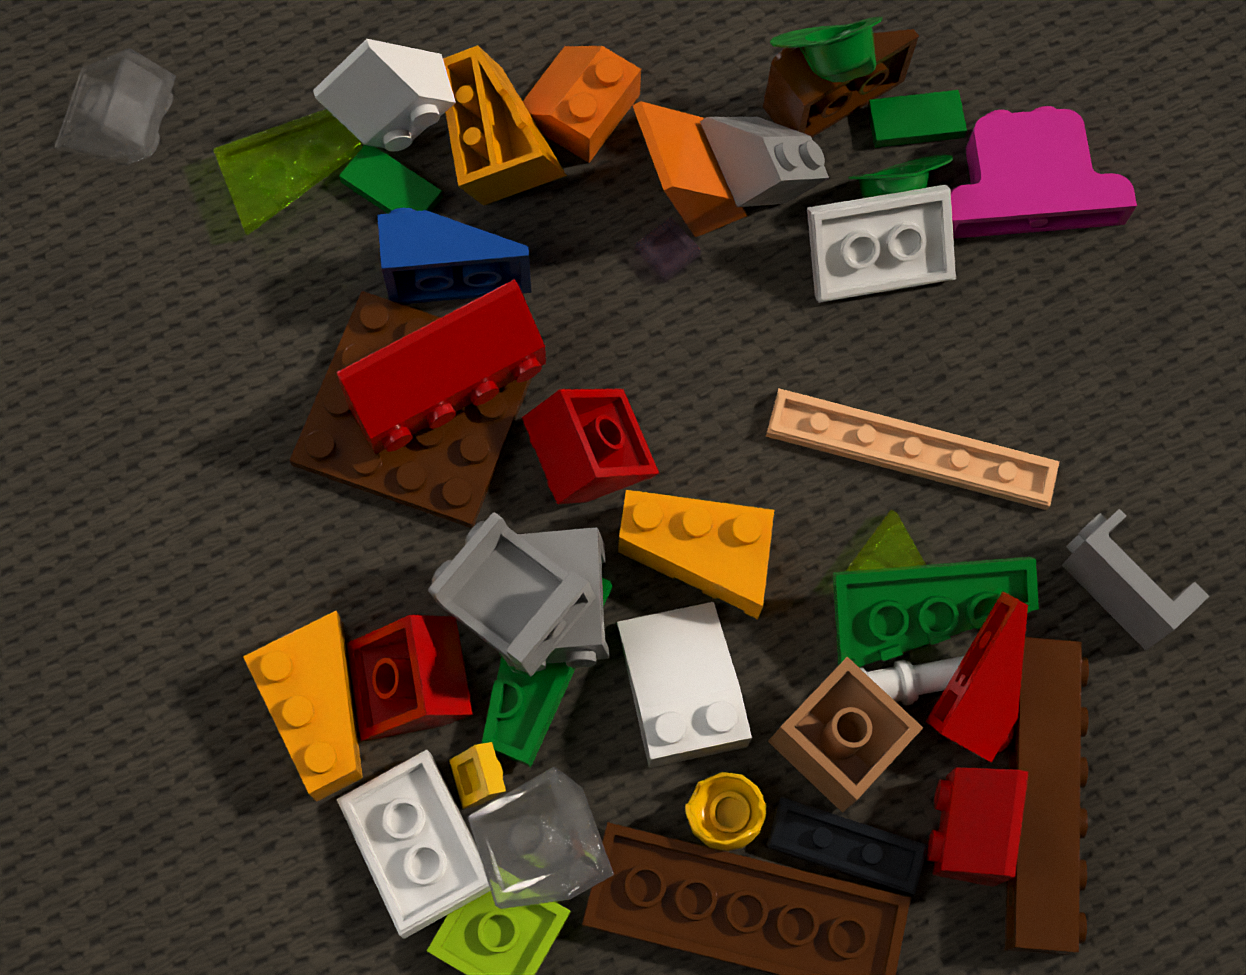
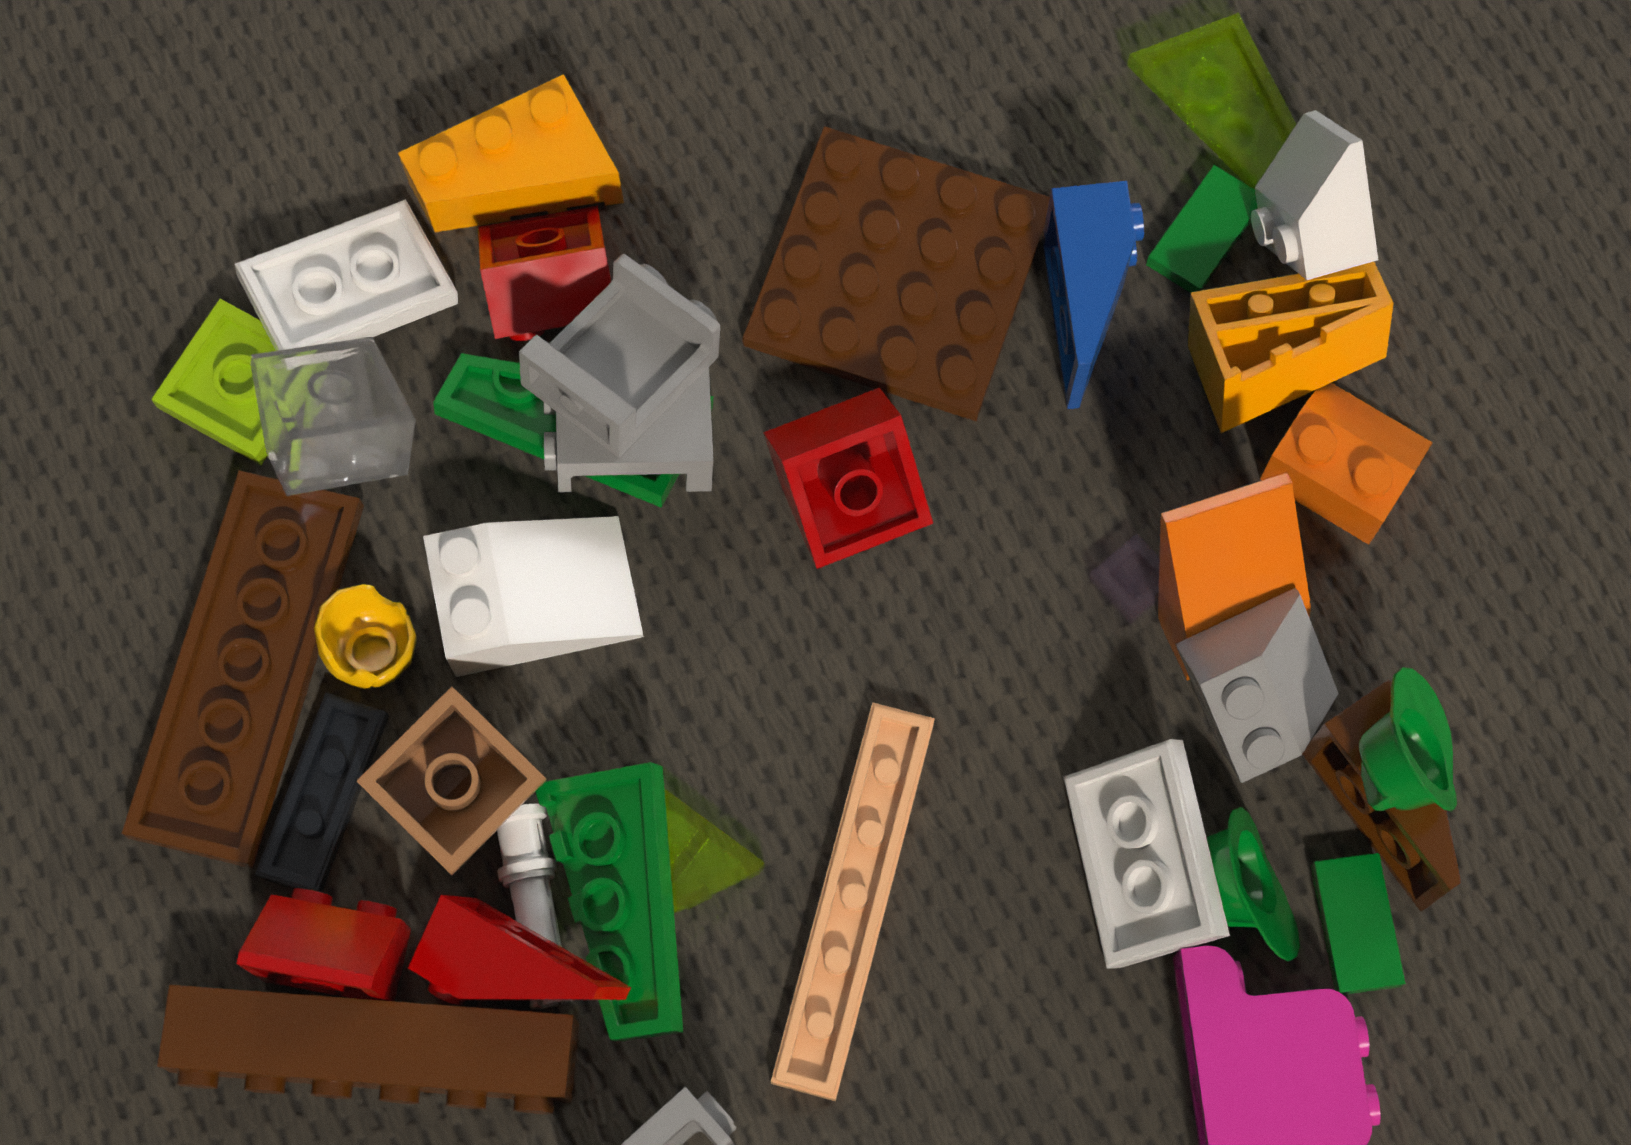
camera: 95 degrees right, 0 degrees up
(443, 368) = (927, 278): red slope -> none
(477, 775) = (424, 353): yellow plate -> none
(702, 544) = (709, 612): light orange wedge -> none

